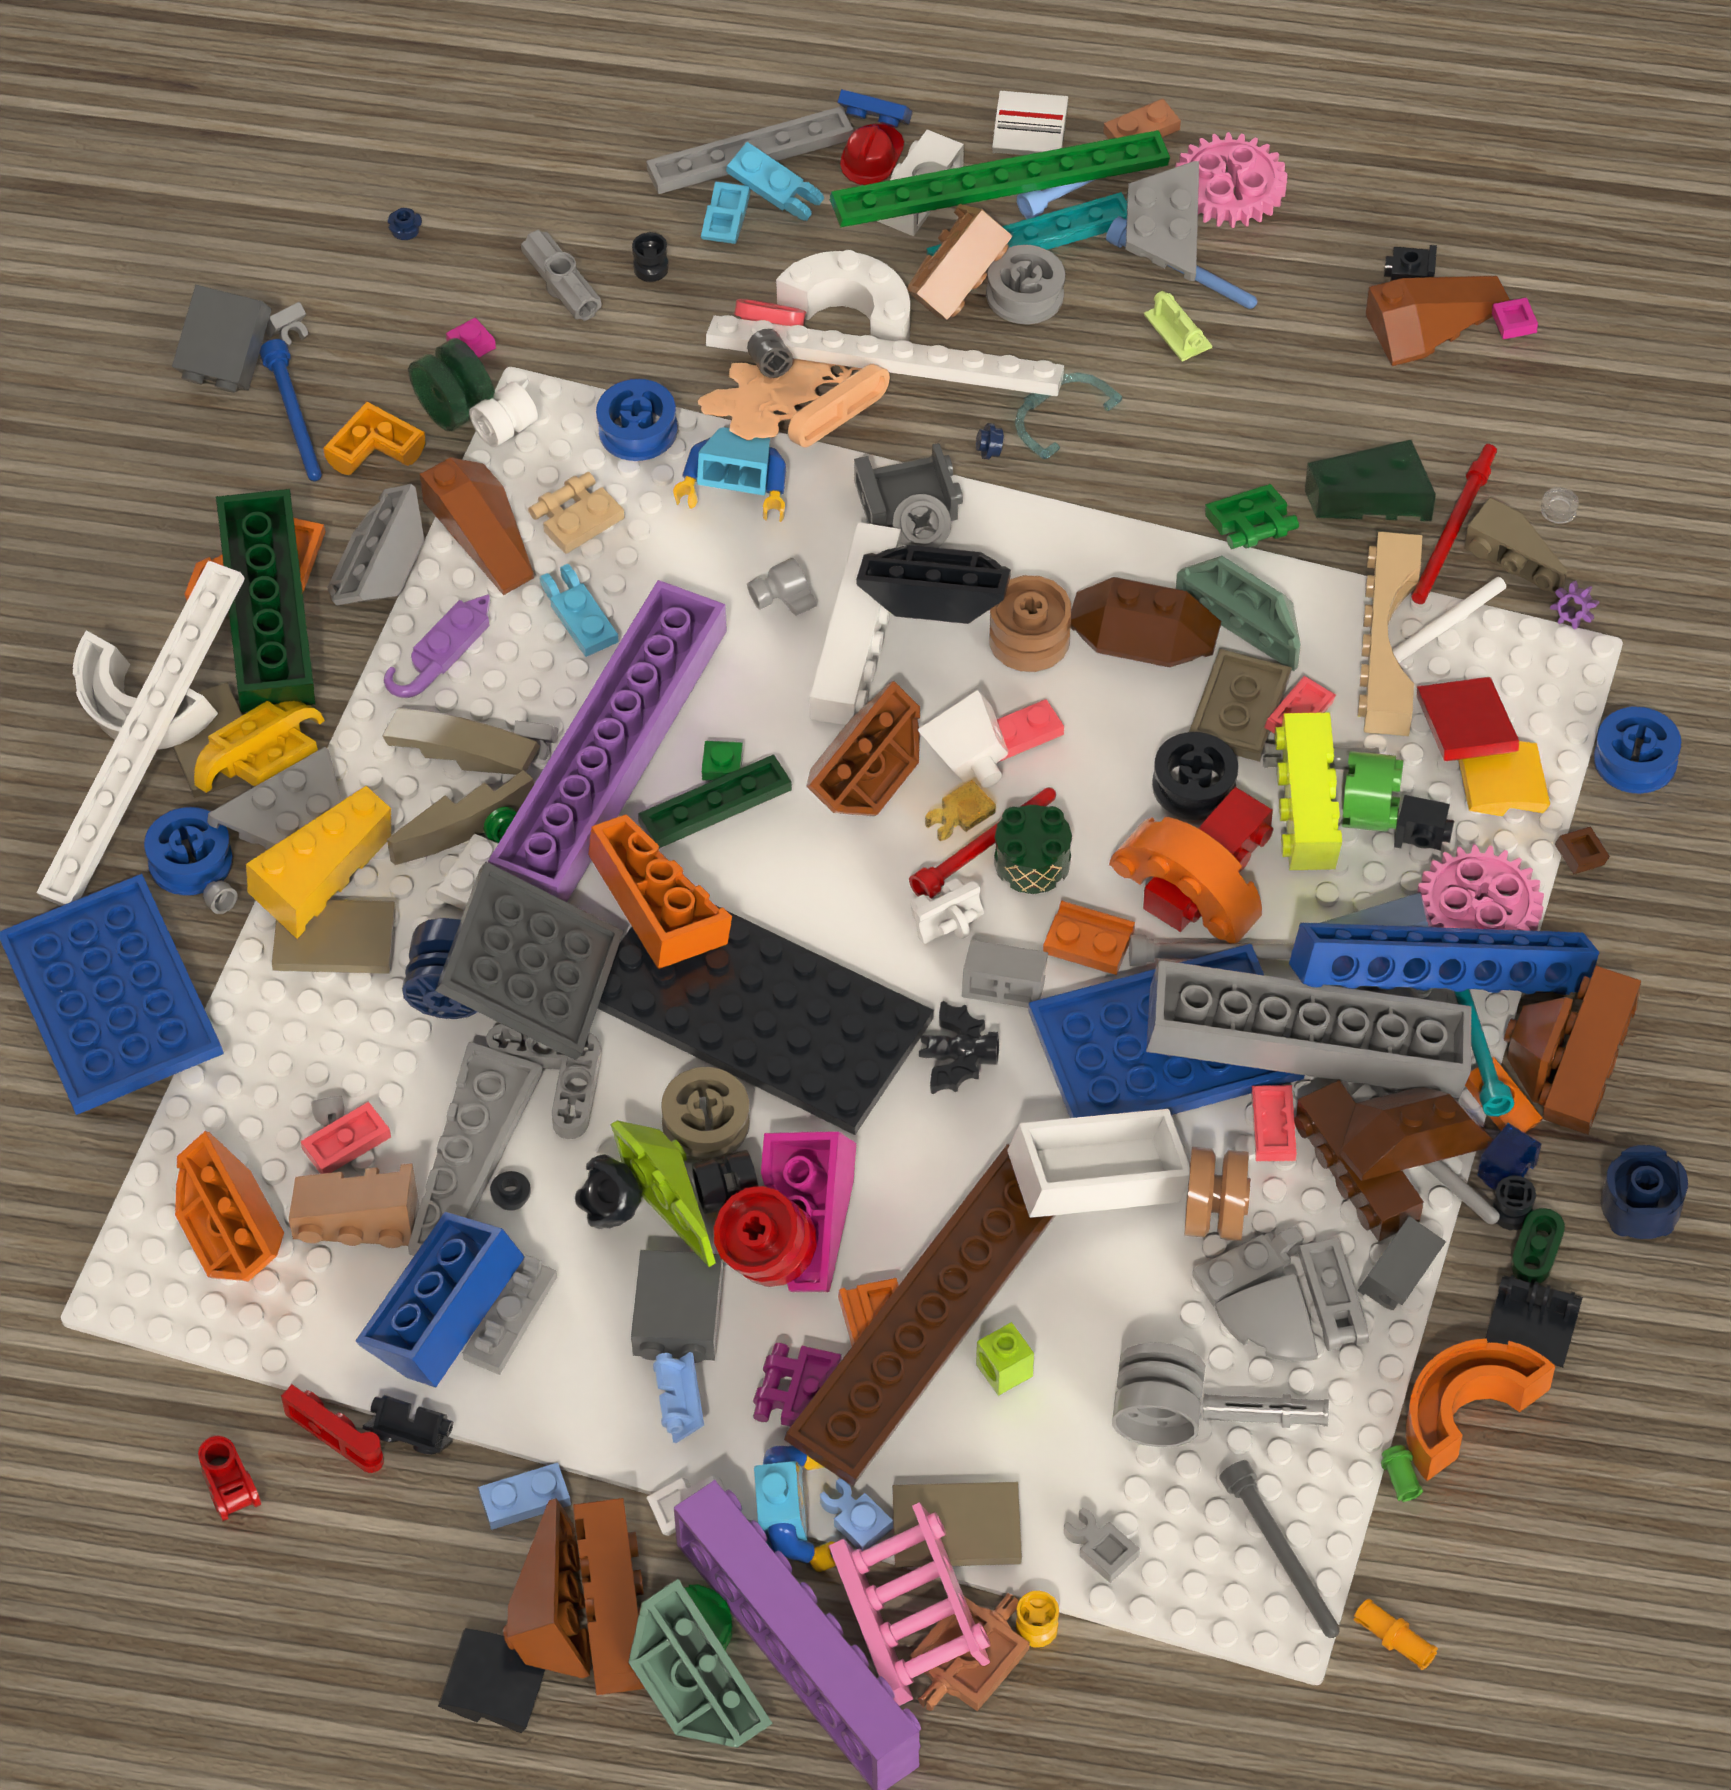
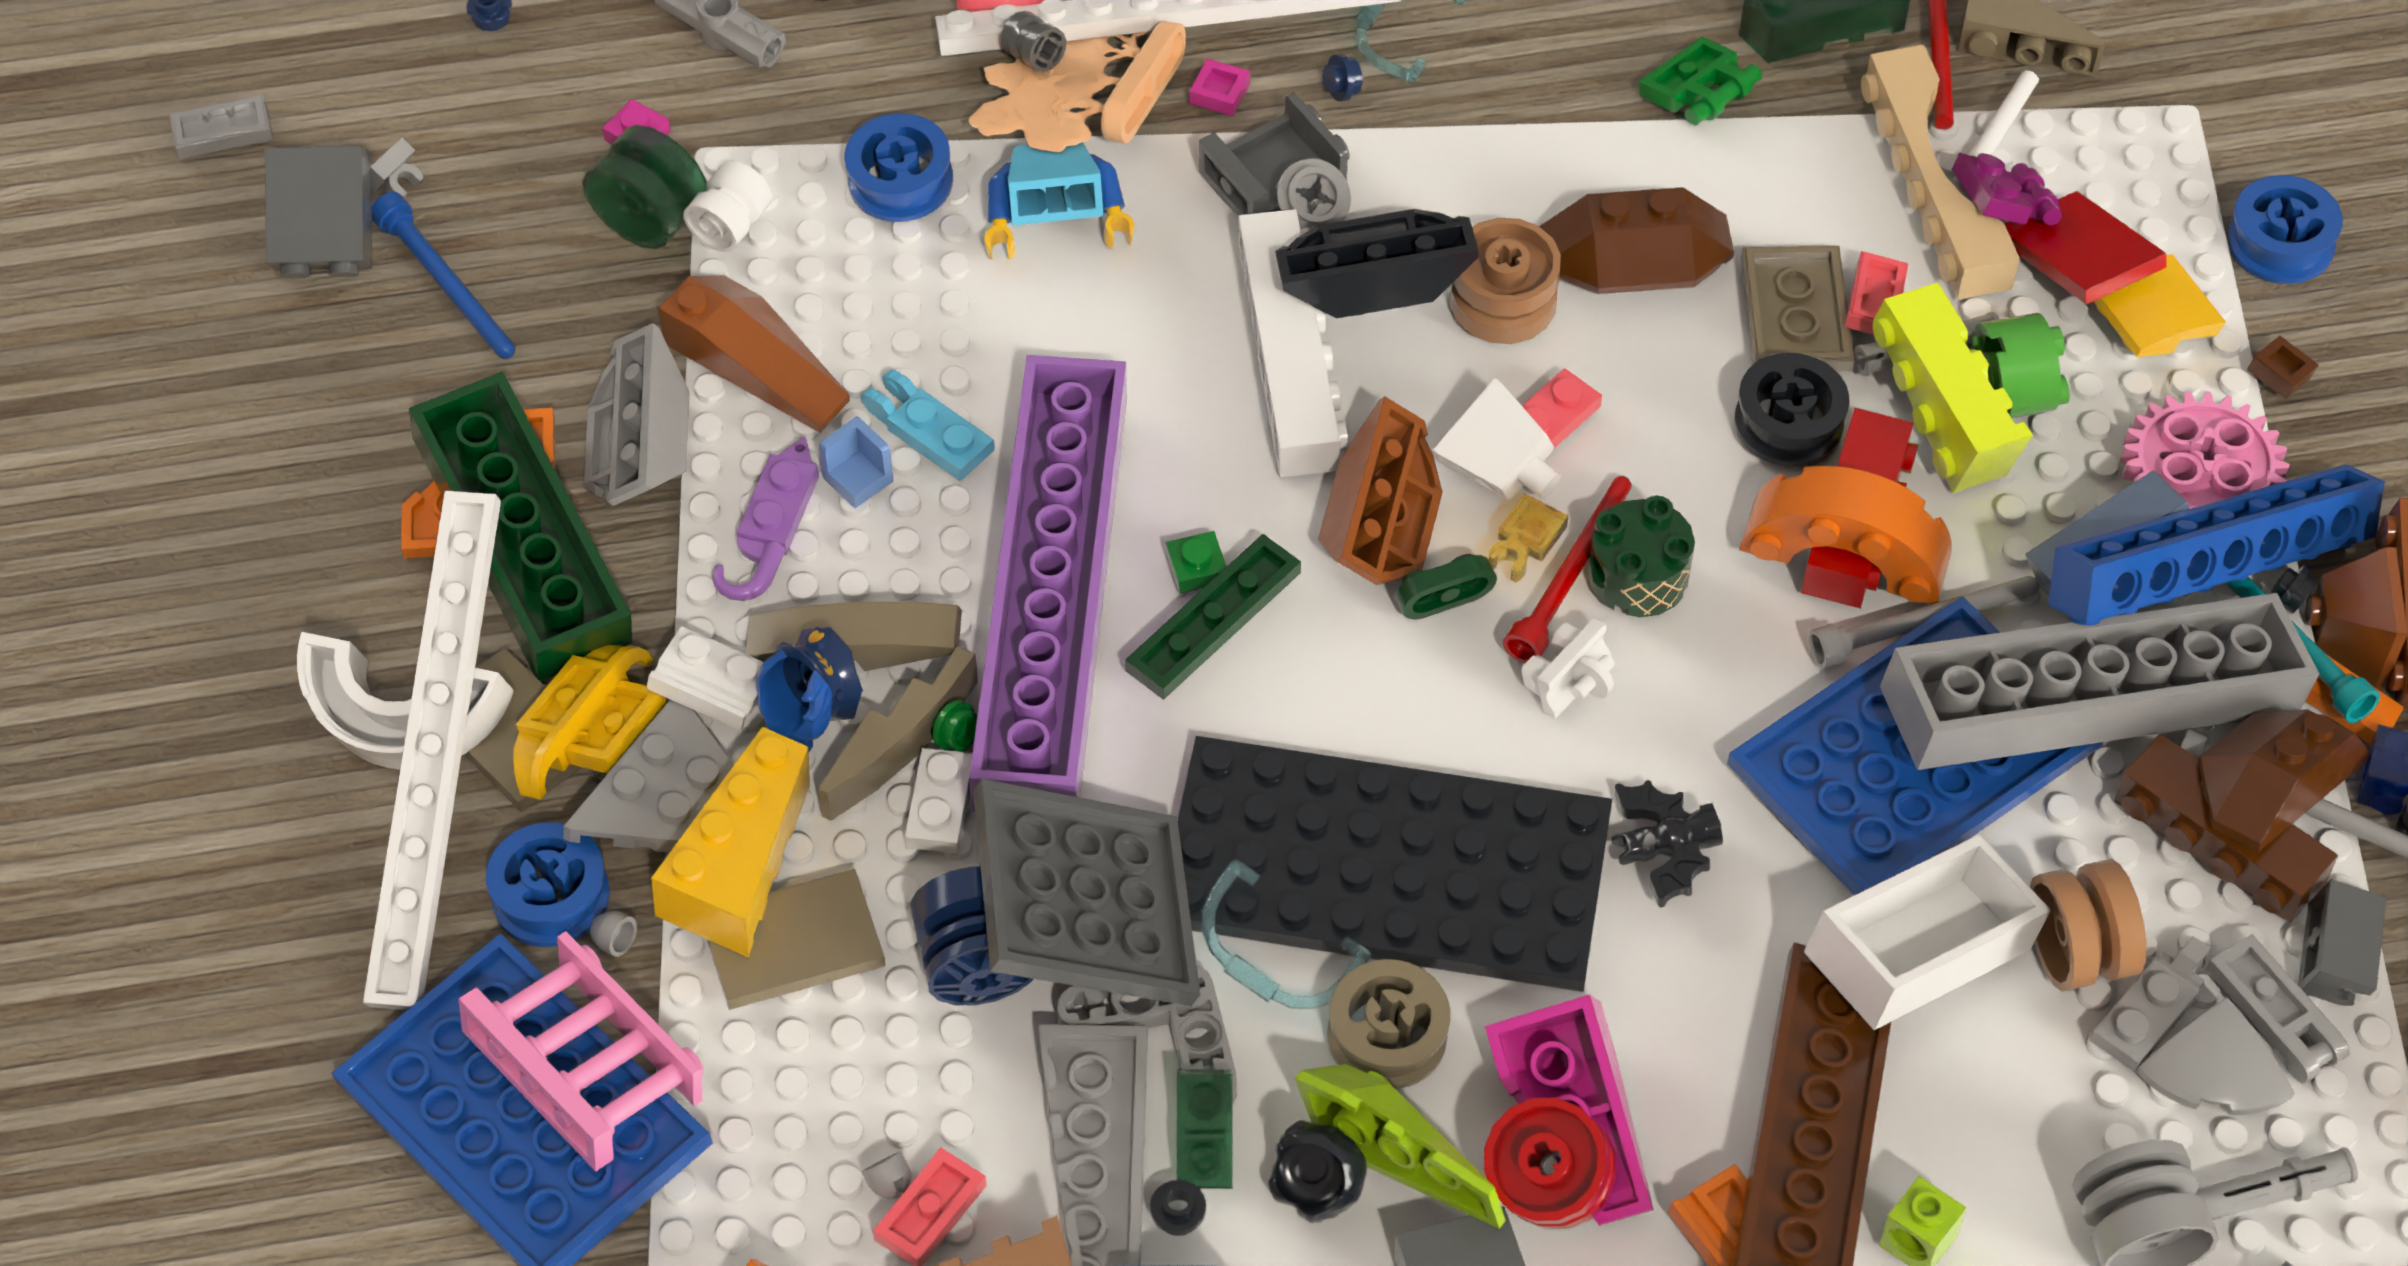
camera: 20 degrees left, 0 degrees up
(133, 988) = (558, 1093): none -> bright pink fence
(183, 259) = (221, 126): none -> light grey plate
(352, 743) = (707, 677): none -> white plate
(371, 430) = (562, 272): light orange brick -> none
(409, 768) = (808, 686): none -> piece
(514, 622) = (856, 462): none -> medium blue panel
(538, 732) = (949, 592): light grey tile -> none
(550, 1143) = (1205, 1128): none -> clear green slope
(580, 521) = (882, 310): tan plate -> none
(624, 1048) = (1248, 974): none -> clear light blue piece
(659, 901) = (1204, 757): orange wedge -> none
(711, 1183) = (1464, 1102): black wheel -> none
(786, 583) = (1179, 316): light grey piece -> none
(885, 829) = (1445, 586): none -> dark green plate
(898, 424) = (1220, 87): none -> dark pink plate
(1003, 974) = (1679, 726): light grey hinge -> none
(1089, 937) = (1756, 649): orange plate -> none
(1245, 607) = (1758, 186): sand green wedge -> none
(1273, 1123) = (2097, 812): coral plate -> none
(1423, 823) = (2095, 388): black brick -> none
(1429, 664) = (2006, 194): none -> magenta plate
(1498, 1010) = (2294, 588): none -> black plate
(1580, 596) = (2140, 84): medium lavender gear -> none

